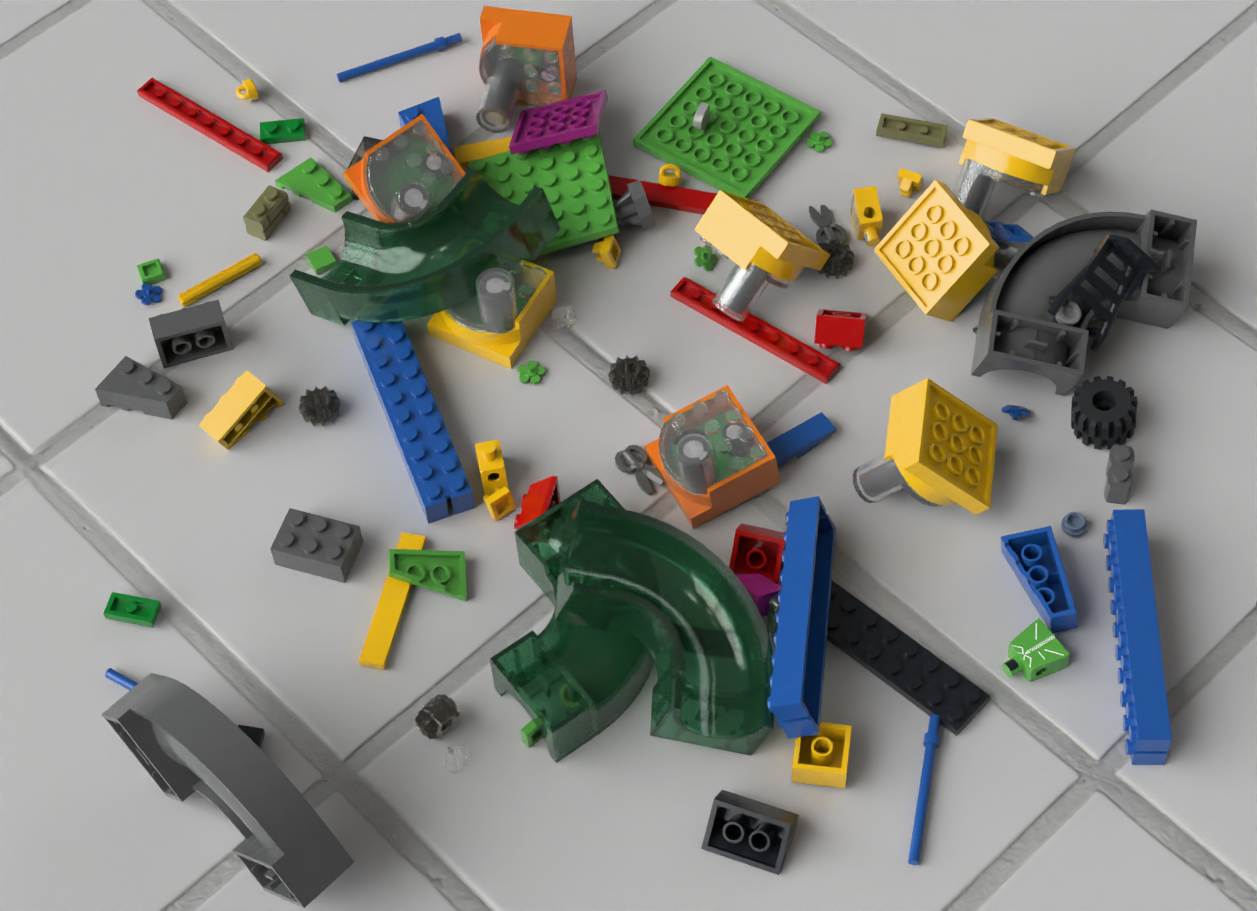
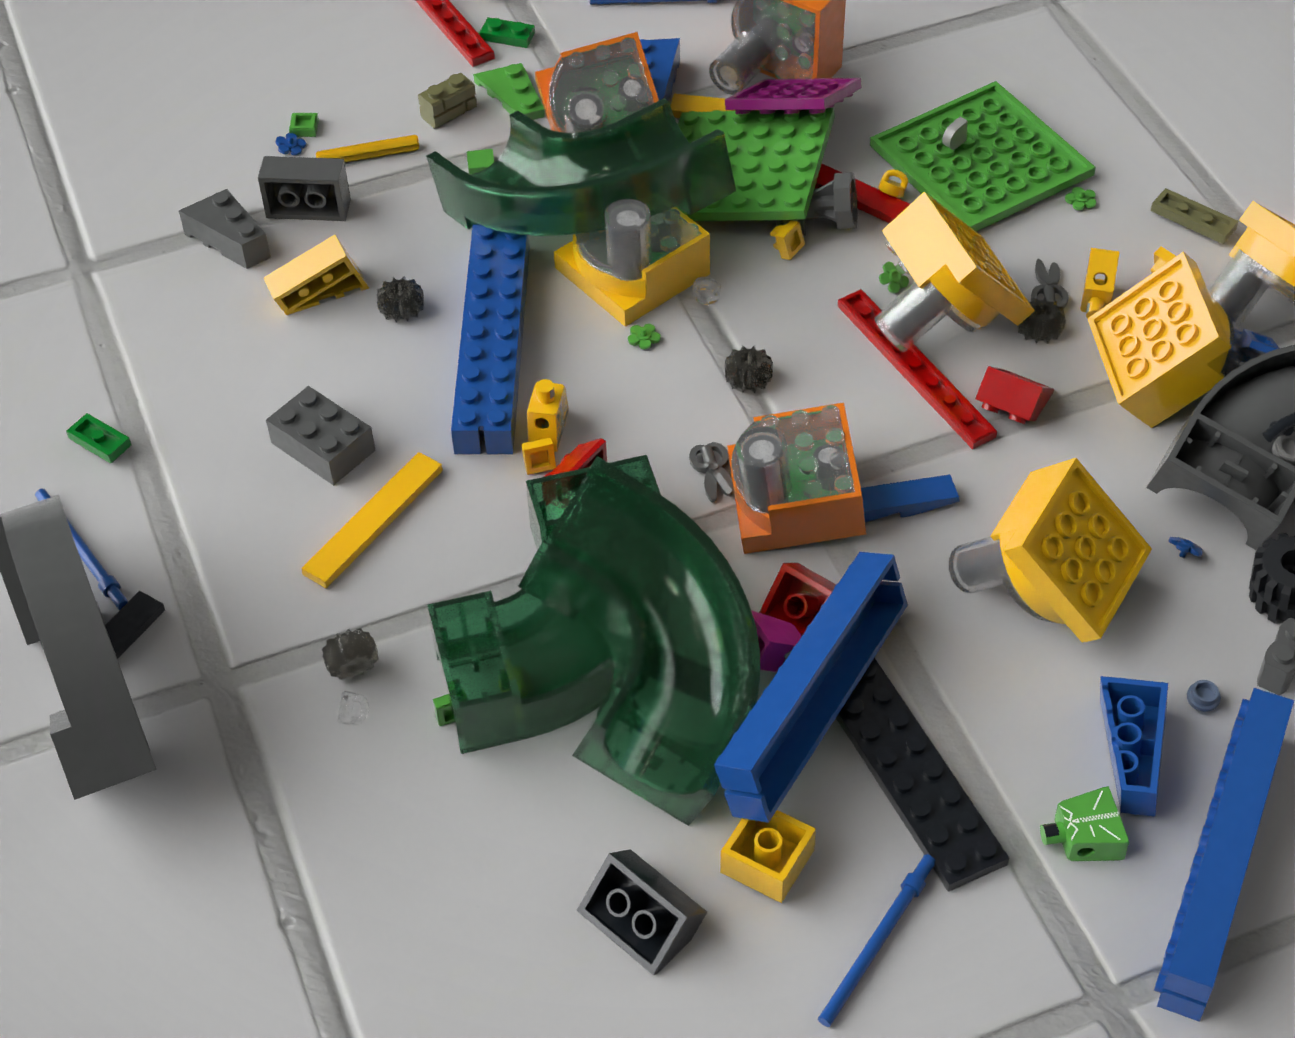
camera: 20 degrees right, 5 degrees down
(430, 569) = (427, 499): bright green wing -> none

